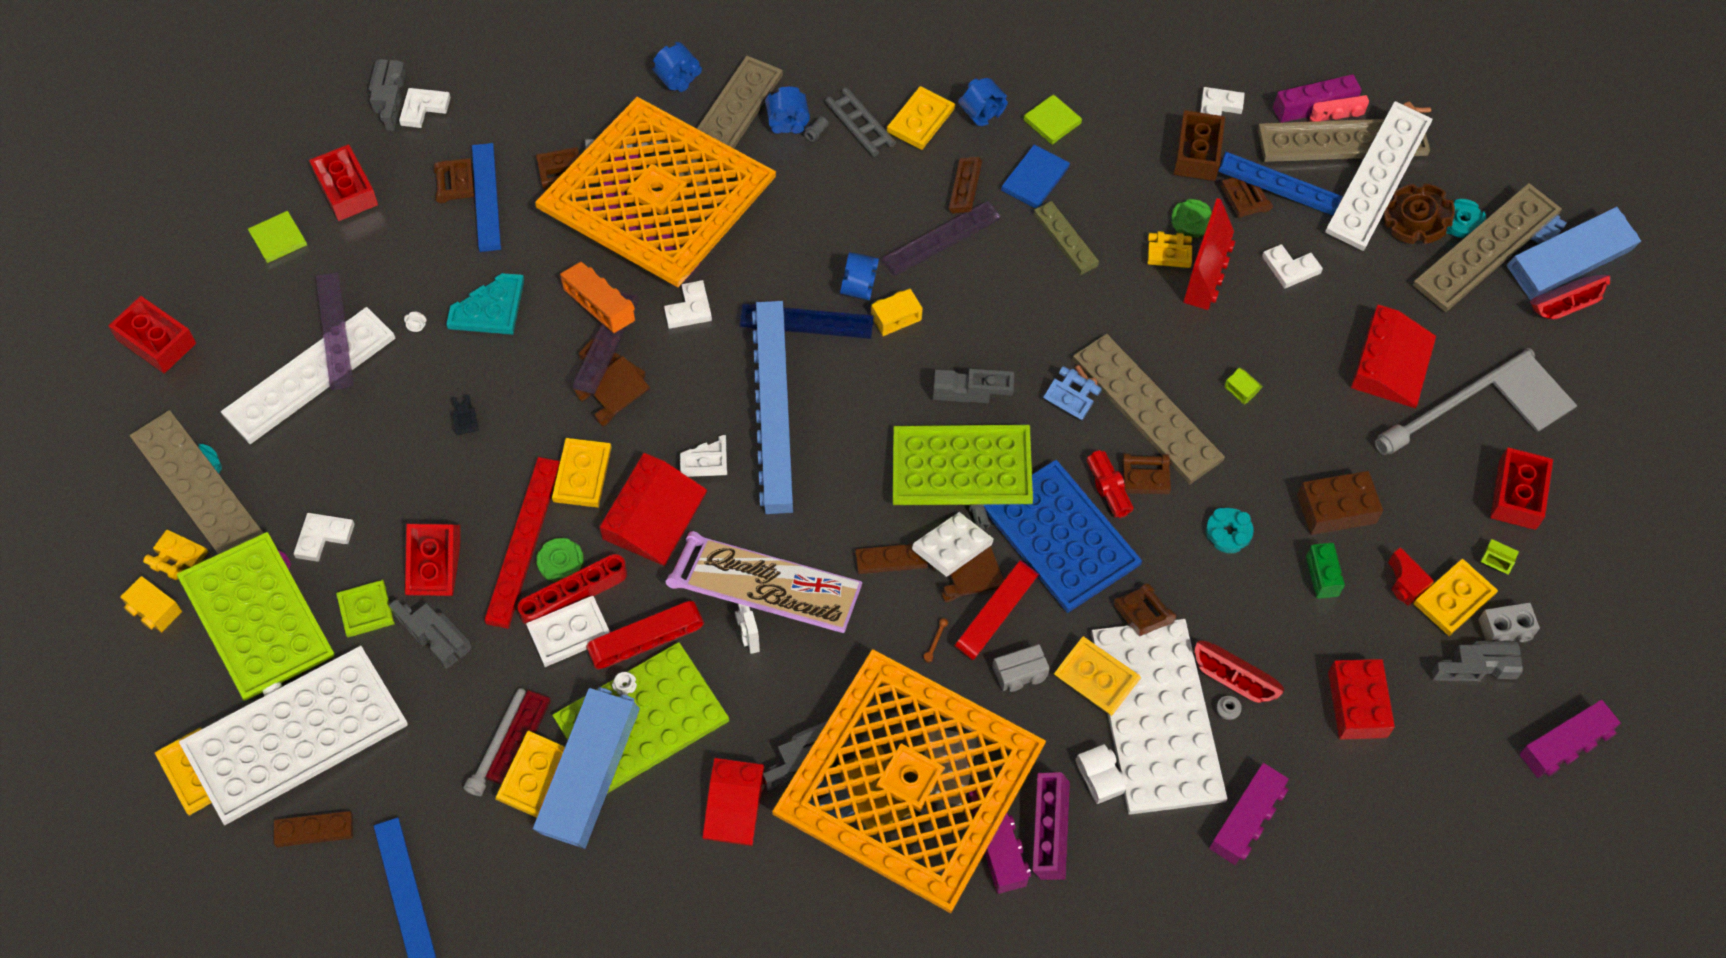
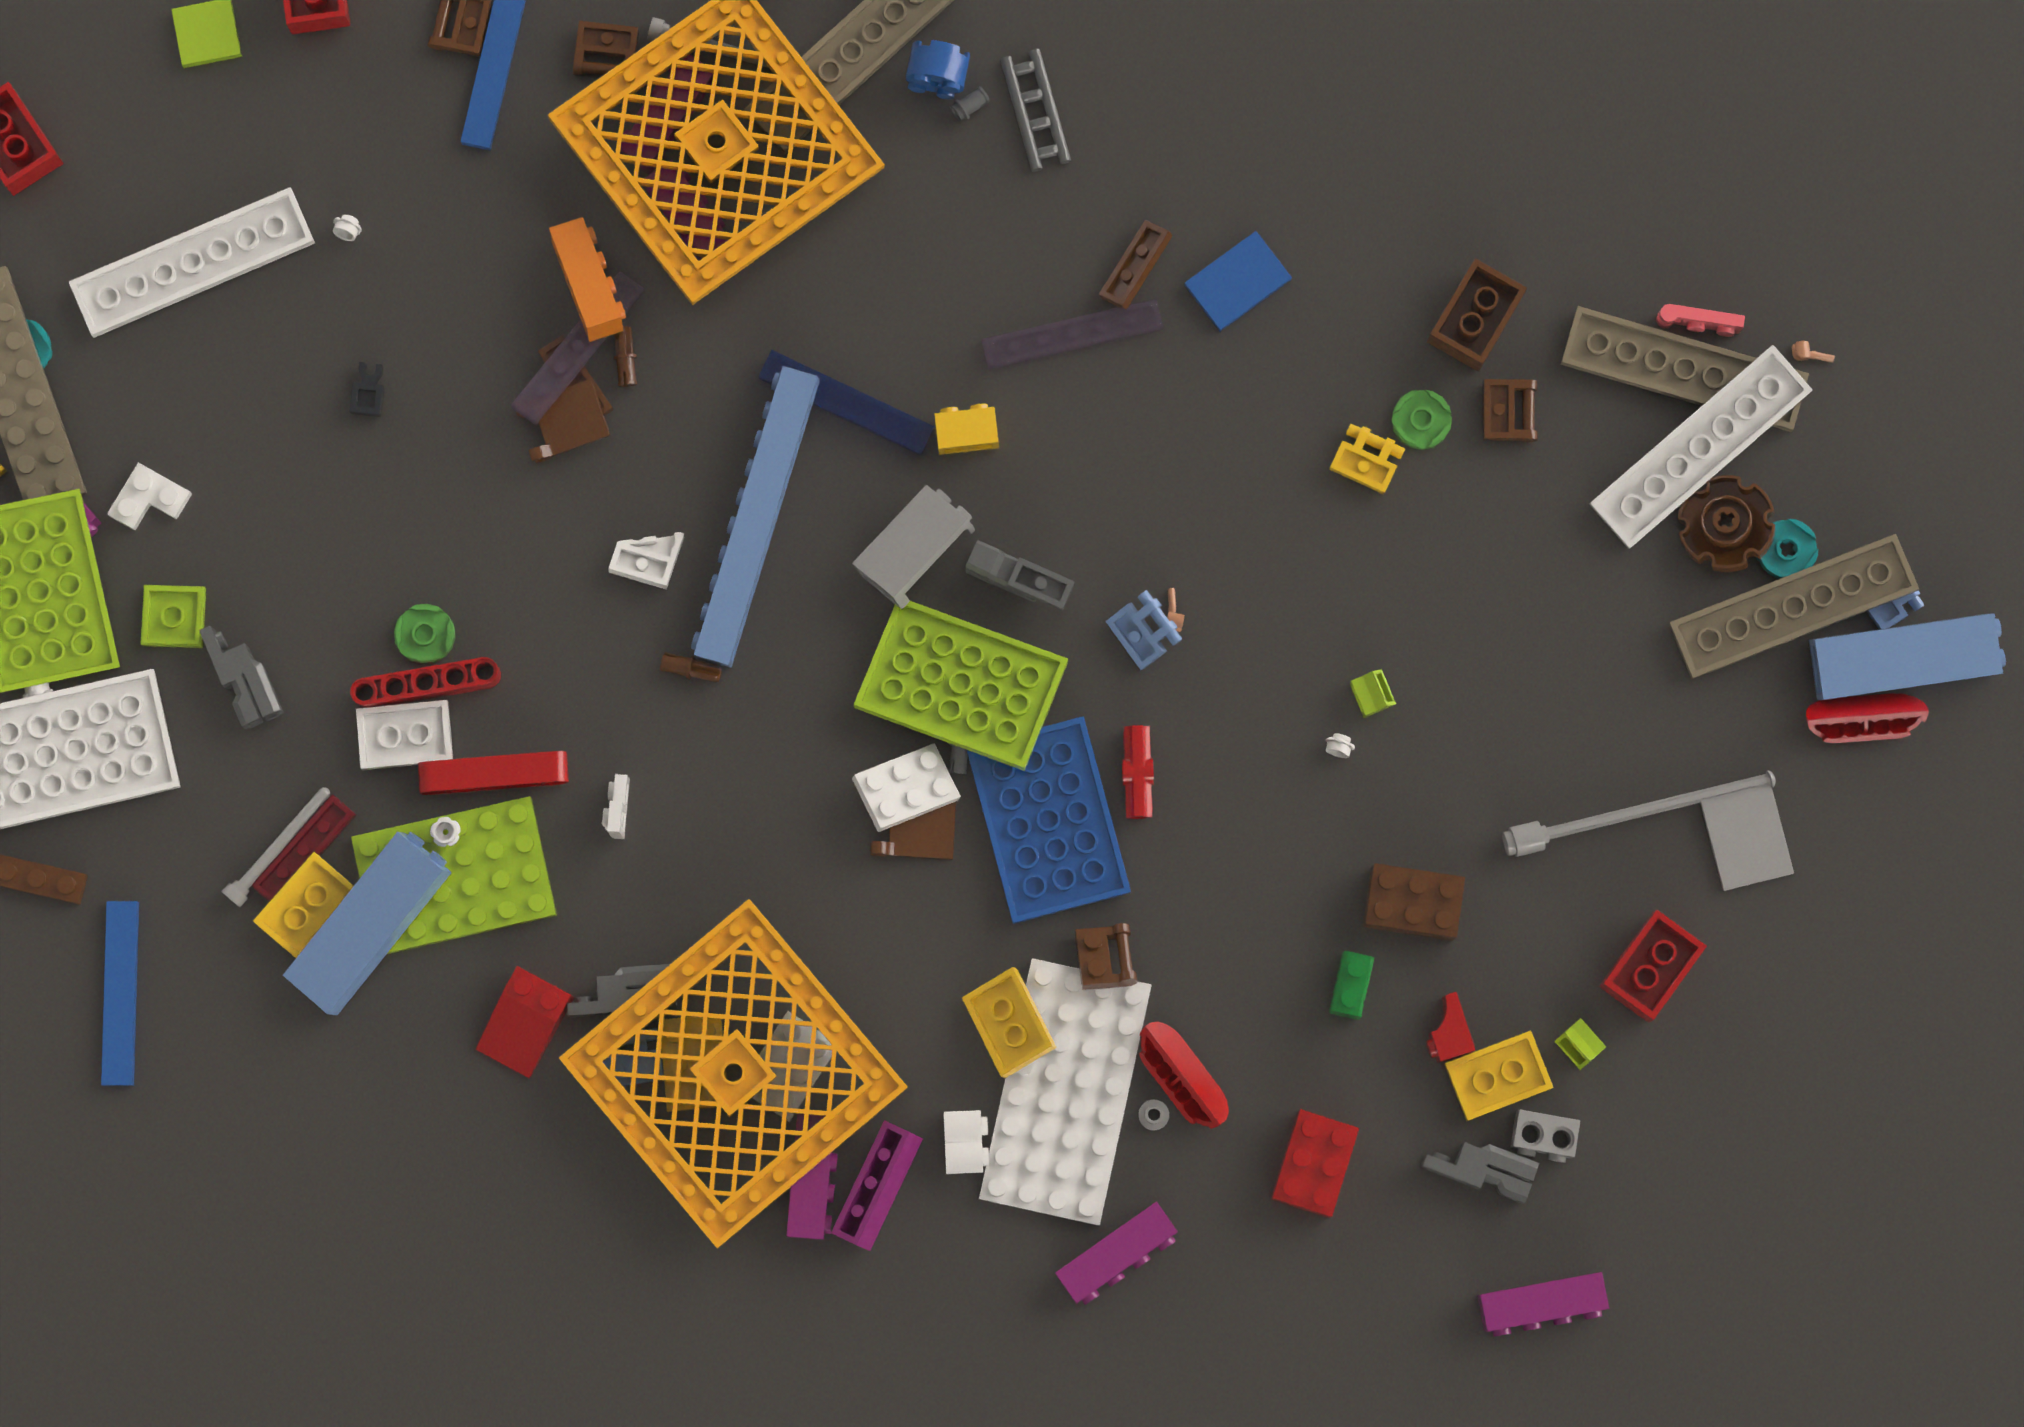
camera: 20 degrees right, 20 degrees up
(334, 331) = (239, 212): clear purple tile -> none
(431, 559) = (270, 579): red slope -> none
(489, 307) = (447, 239): teal plate -> none
(522, 543) = (388, 592): red plate -> none
(582, 472) = (488, 523): yellow plate -> none
(641, 340) = (625, 358): none -> reddish brown axle
(652, 510) = (558, 608): red slope -> none
(693, 310) = (708, 333): white plate -> none
(764, 518) = (690, 667): none -> reddish brown axle
(767, 583) = (661, 759): flag -> none
(859, 276) = (934, 362): blue brick -> none
(888, 559) = (820, 773): reddish brown plate -> none
(889, 389) = (912, 544): none -> light grey panel
(921, 118) = (1119, 134): yellow plate -> none
(928, 656) = (822, 919): dark orange hinge -> none
(983, 101) = (1210, 143): blue brick -> none
(996, 610) = (926, 891): red beam -> none
(1021, 668) = (924, 977): light grey brick -> none
(1052, 119) = (1300, 196): lime tile -> none
(1066, 238) = (1238, 390): olive plate -> none
(1146, 480) = (1187, 781): reddish brown plate -> none
(1148, 409) = (1235, 680): dark tan plate -> none
(1211, 259) = (1407, 501): red slope -> none
(1218, 100) = (1537, 244): white plate -> none
(1233, 518) = (1245, 890): teal plate -> none
(1238, 424) = (1339, 745): none -> white plate
(1279, 183) = (1561, 410): blue tile -> none
(1288, 270) = (1513, 545): white plate -> none
(1299, 101) = (1656, 289): magenta brick -> none
(1394, 357) = (1588, 724): red slope -> none

